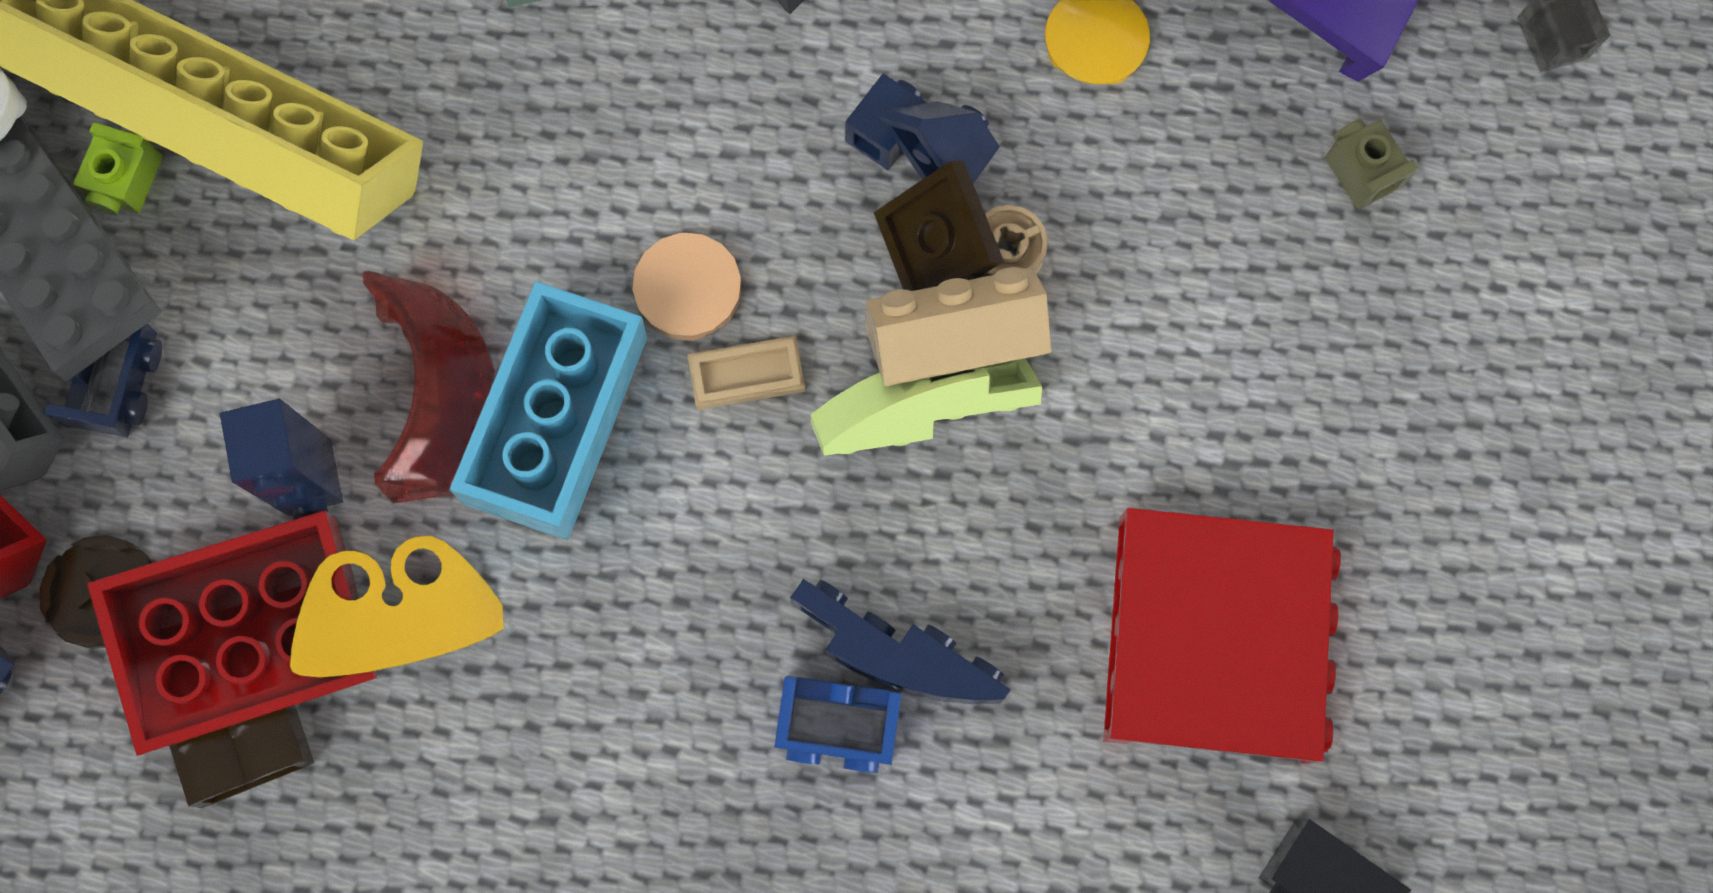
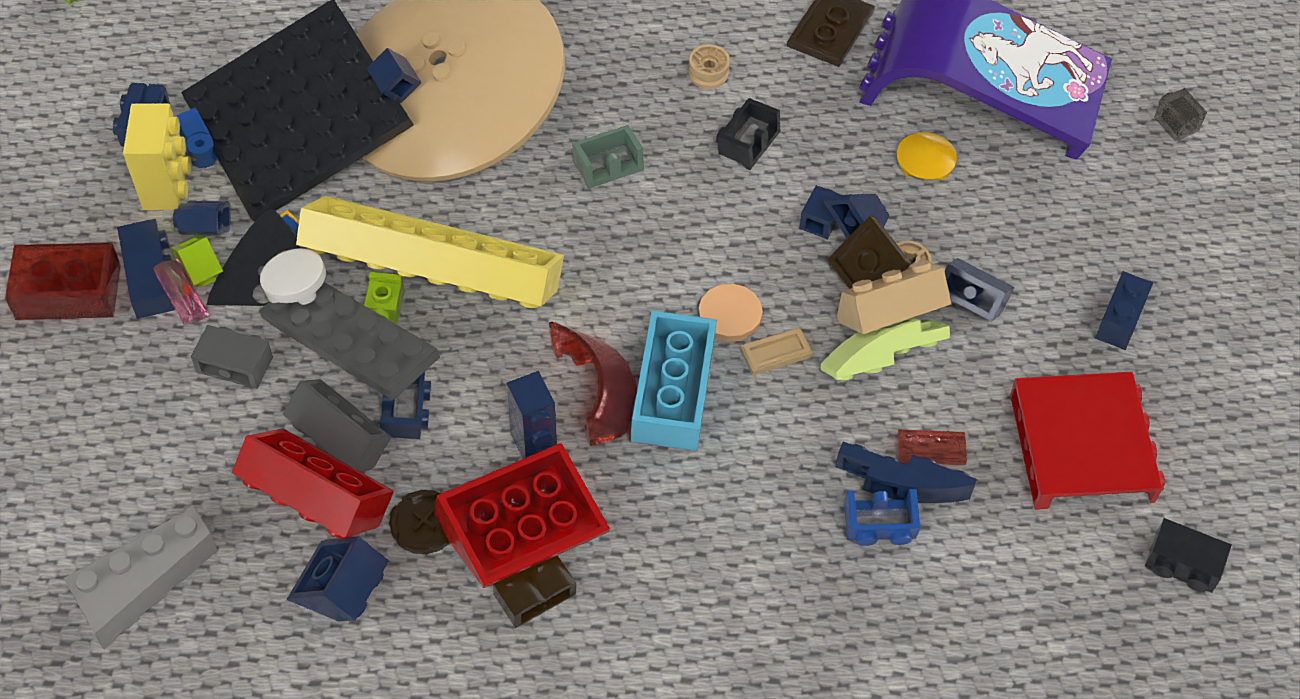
camera: 10 degrees left, 20 degrees down
(369, 635) = (628, 500): yellow piece -> none
(960, 598) = (939, 446): none -> clear red tile
(1106, 319) = (977, 289): none -> dark blue brick
(1355, 400) = (1124, 310): none -> dark blue brick
(1367, 177) = (1095, 195): olive brick -> none

